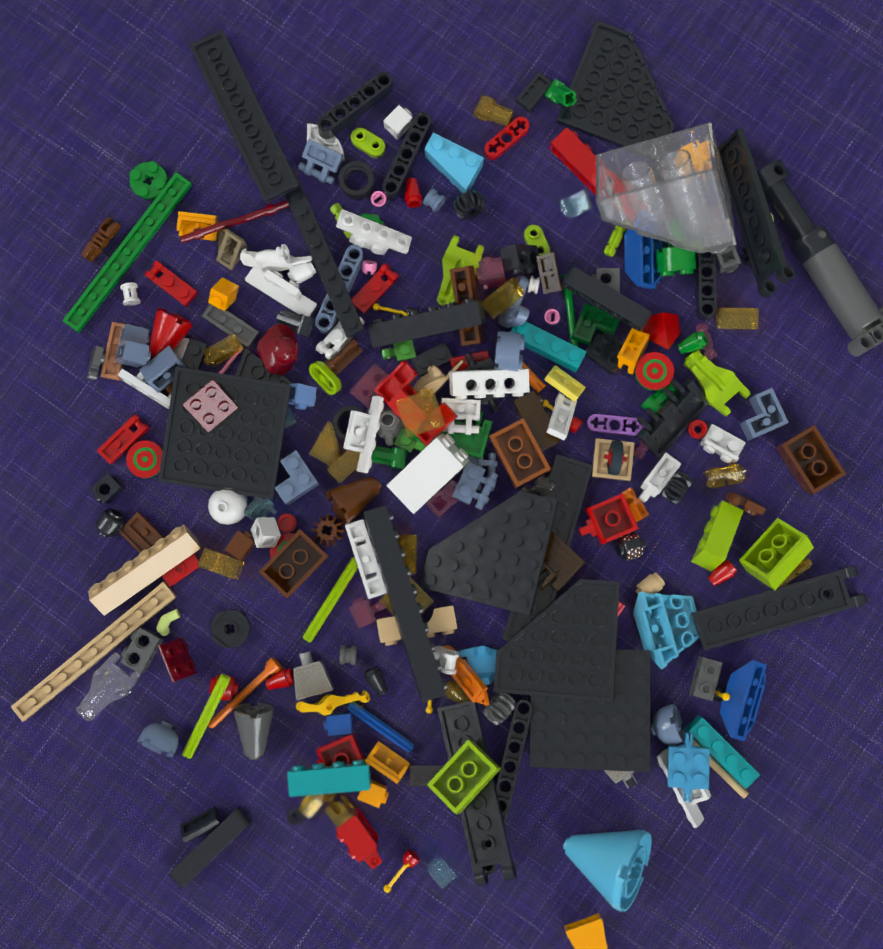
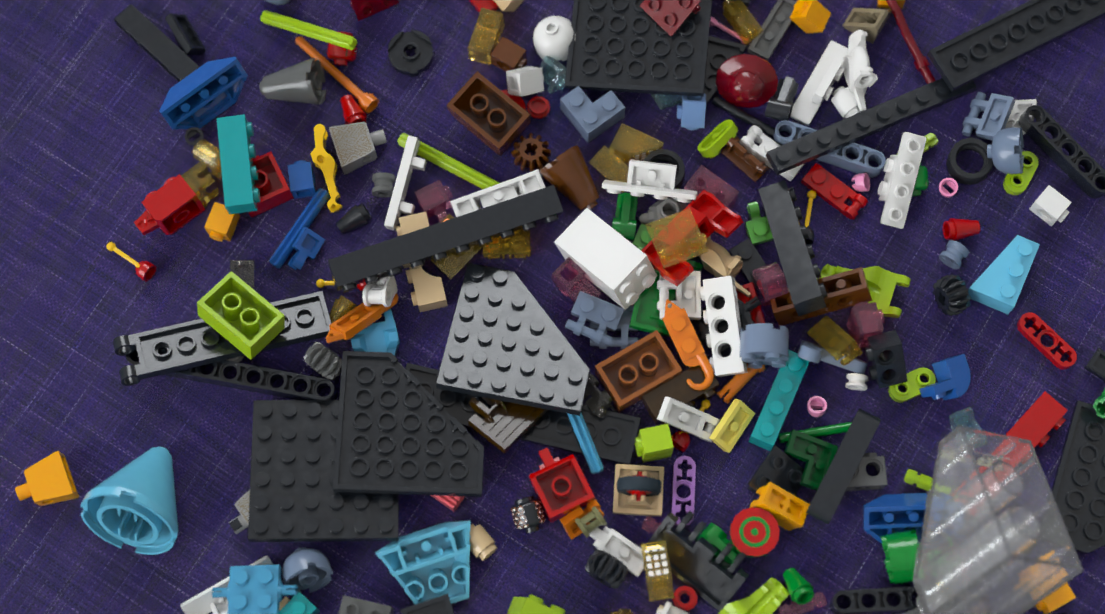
camera: 85 degrees right, 10 degrees down
(259, 809) = (204, 94): none -> blue wedge
(305, 355) = (742, 115): none -> black piece
(332, 632) = (408, 163): none -> white hinge
(354, 148) = (1007, 150): none -> sand blue cylinder
(387, 762) = (258, 236): light orange hinge -> none
(397, 720) = (307, 246): none -> blue plate
(407, 147) = (1019, 217): black beam -> none
(441, 872) = (129, 305): clear light blue plate -> none
(453, 343) = (770, 282): none -> clear pink brick
(489, 110) = (1081, 315): clear yellow piece -> none
(502, 412) = (687, 343): none -> orange plate
(536, 211) = (952, 378): none -> blue brick
(549, 273) = (871, 395): hinge -> none
(579, 497) = (586, 443): none -> dark azure axle
(580, 444) = (654, 443): none -> lime brick
(641, 497) = (587, 529): none -> olive bush
(663, 329) = (813, 547): red slope -> none
(681, 448) = (657, 571): none -> clear yellow slope

